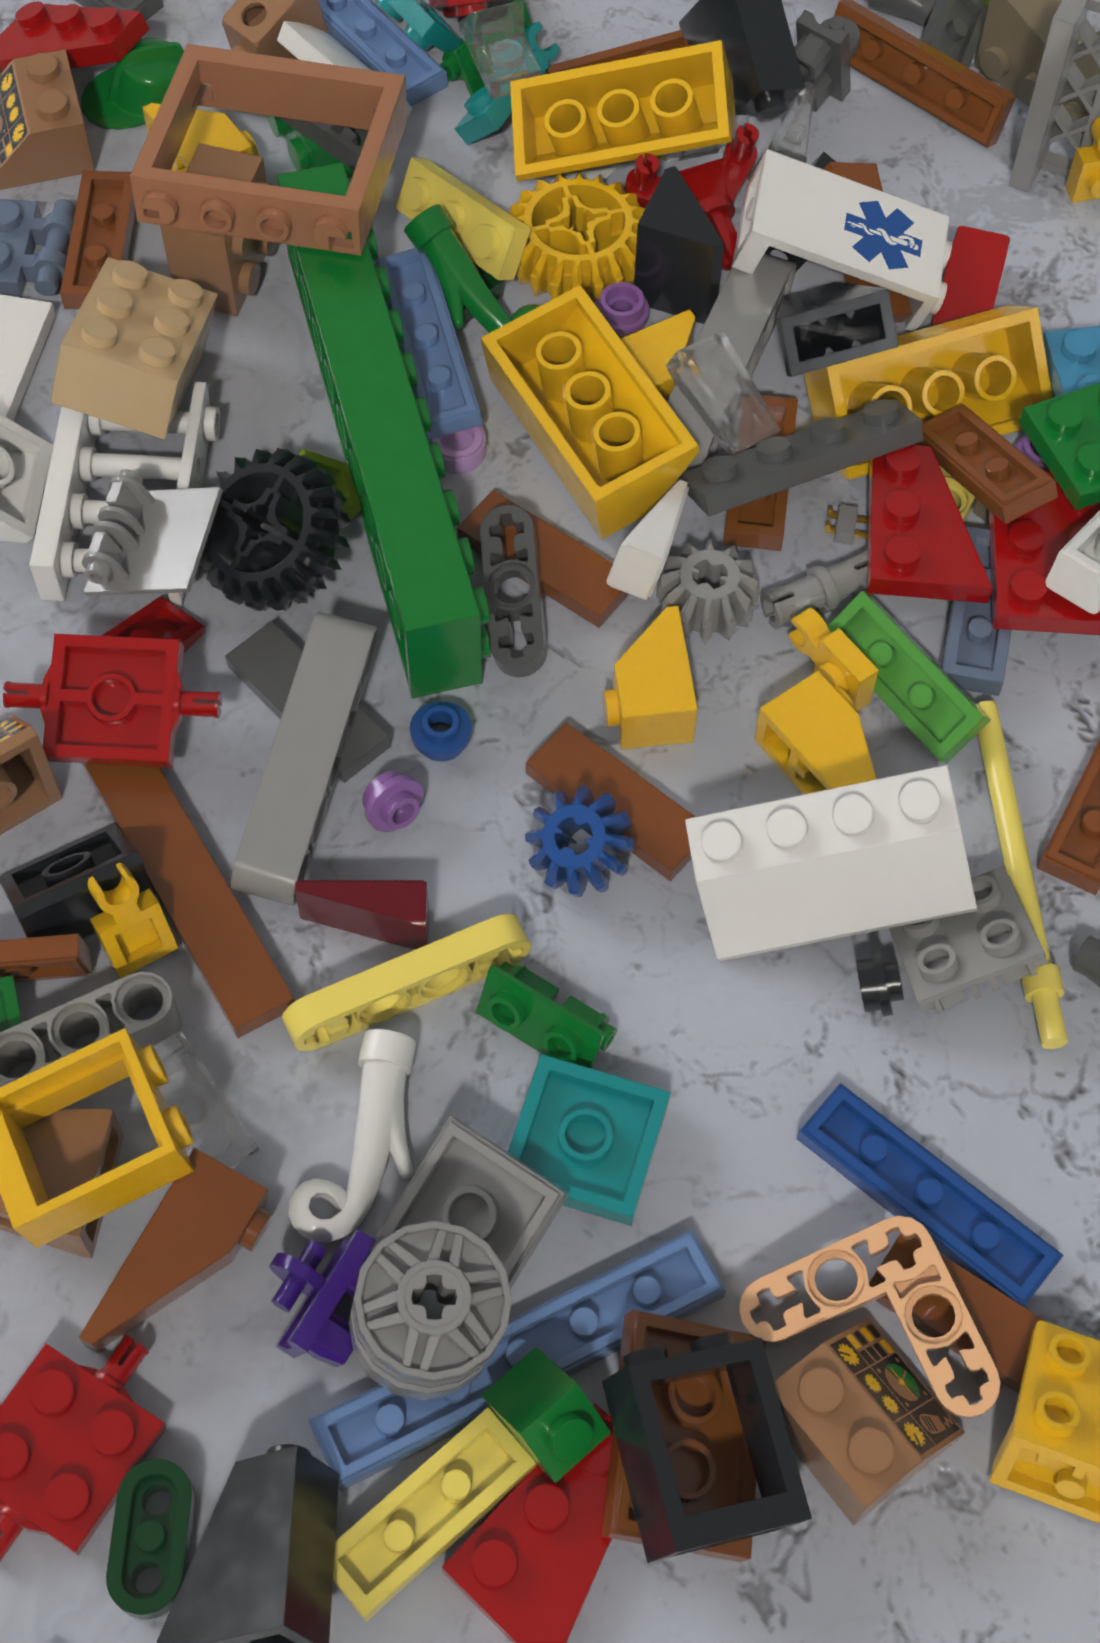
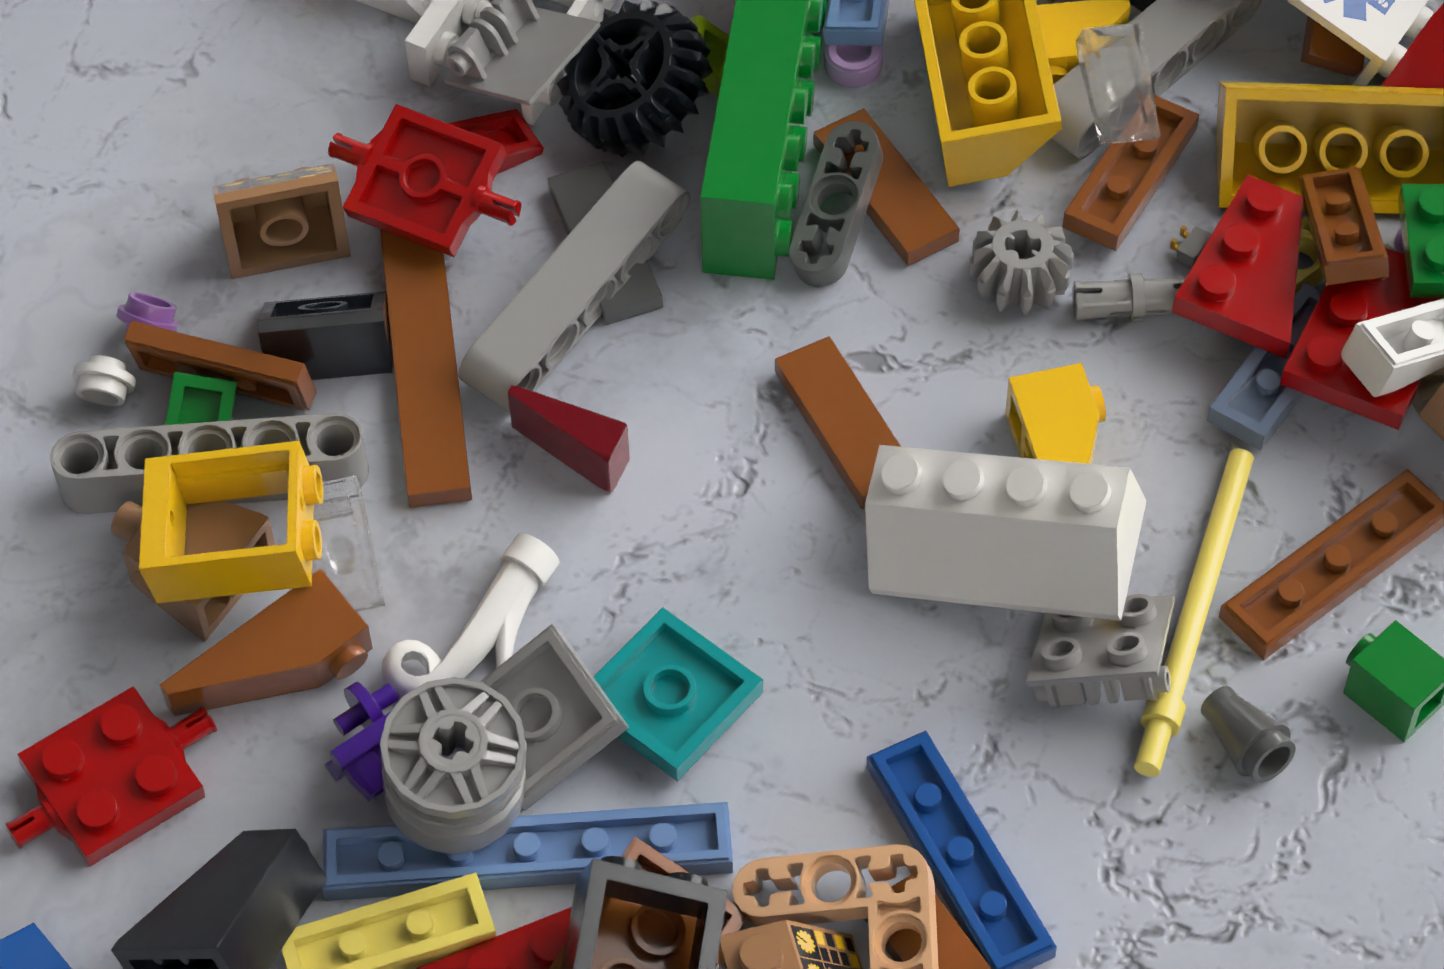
camera: 25 degrees right, 5 degrees down
(131, 924) = (355, 377): yellow plate -> none
(150, 1540) = (144, 871): dark green plate -> none
(392, 801) = (636, 352): medium lavender plate -> none
(404, 982) = (576, 508): light yellow beam -> none
(445, 744) = (716, 319): blue plate -> none
(526, 1009) = (672, 568): green hinge -> none
(546, 1413) = (520, 892): green brick -> none
(559, 827) = (787, 440): blue gear -> none
(648, 546) = (974, 200): white slope -> none
(653, 688) = (924, 330): yellow slope -> none
(803, 456) = (1149, 165): dark grey plate -> none
(834, 325) = (1247, 52): black slope -> none
(835, 657) = (1112, 365): yellow plate -> none
(879, 983) = (1004, 658): black plate -> none
(911, 680) = (1172, 401): bright green plate -> none

